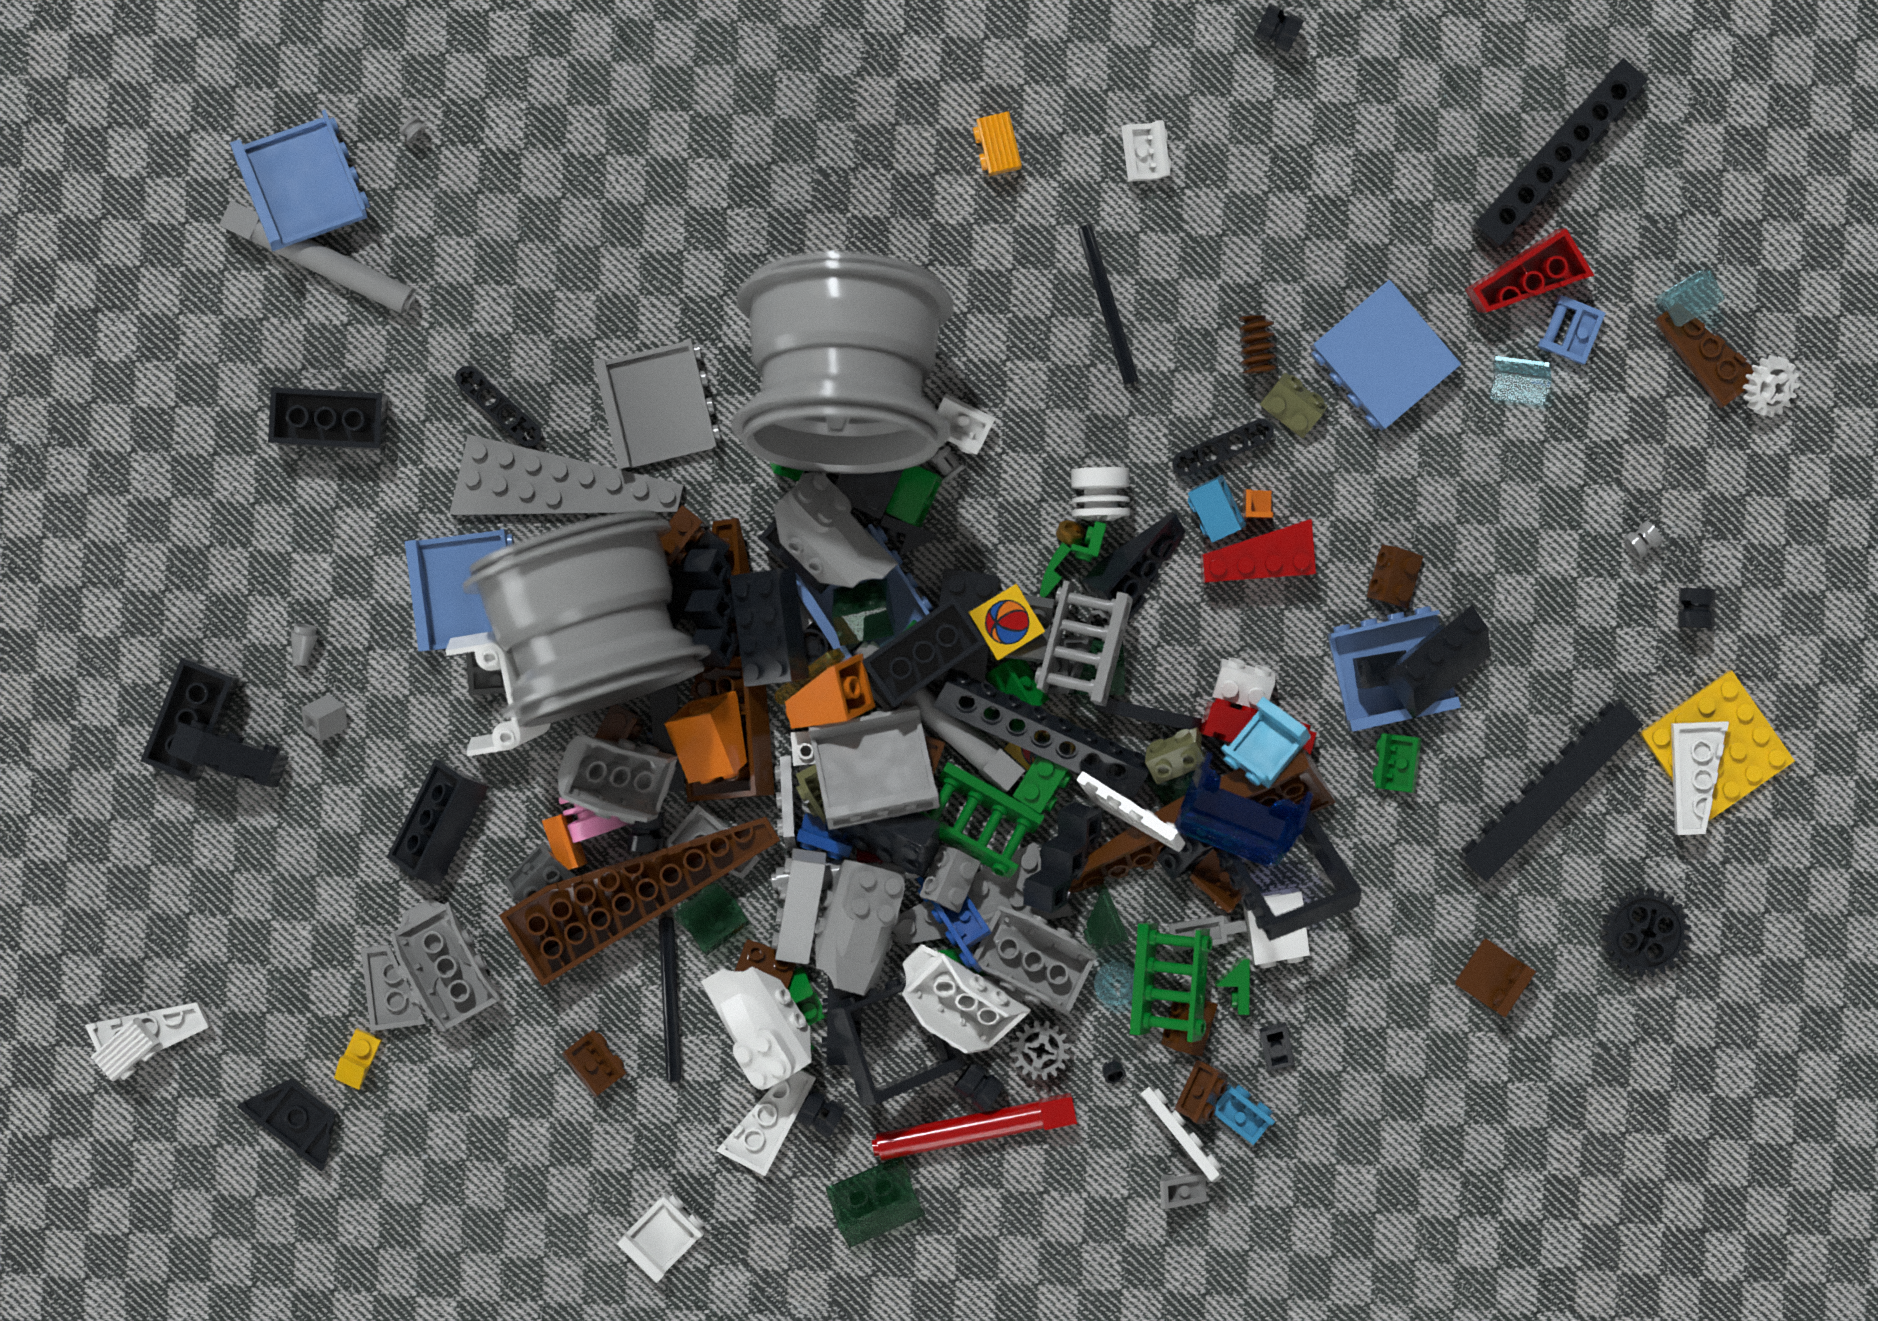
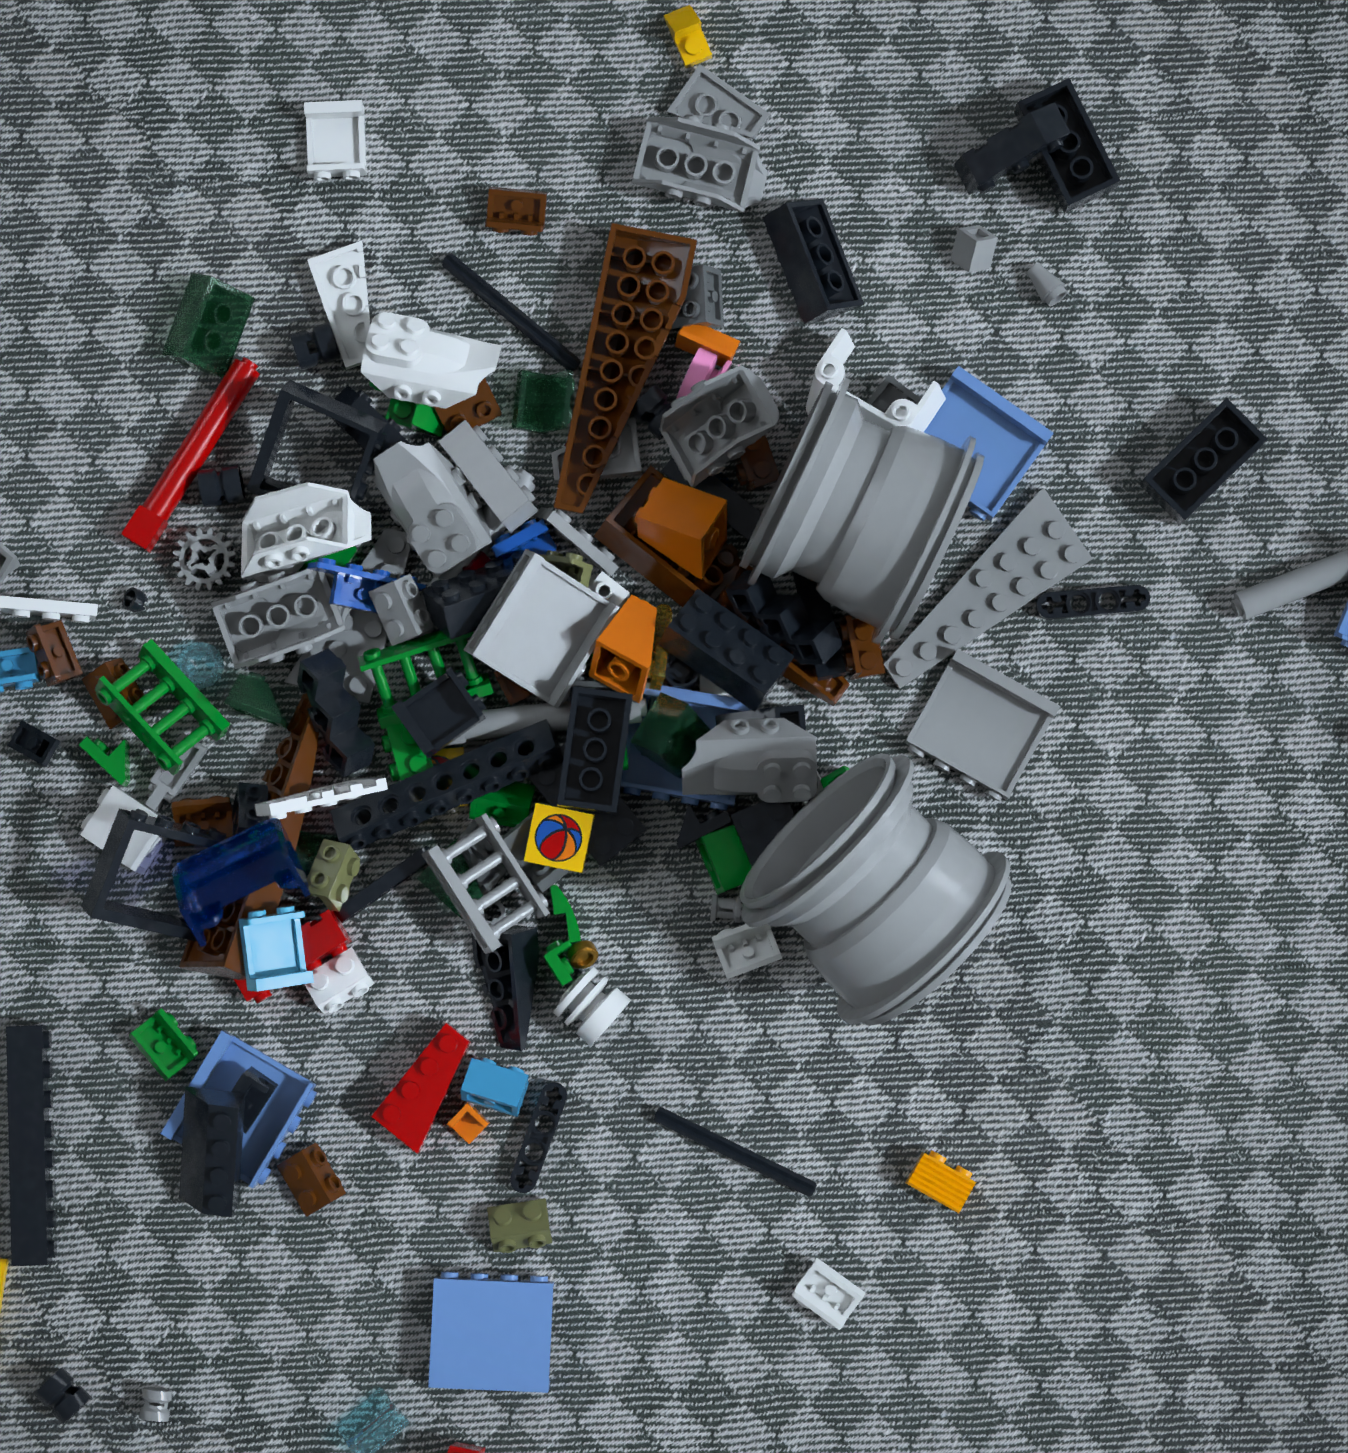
camera: 135 degrees right, 5 degrees down
(996, 784) = (440, 712): none -> black panel
(1257, 344) = (594, 1240): reddish brown piece -> none

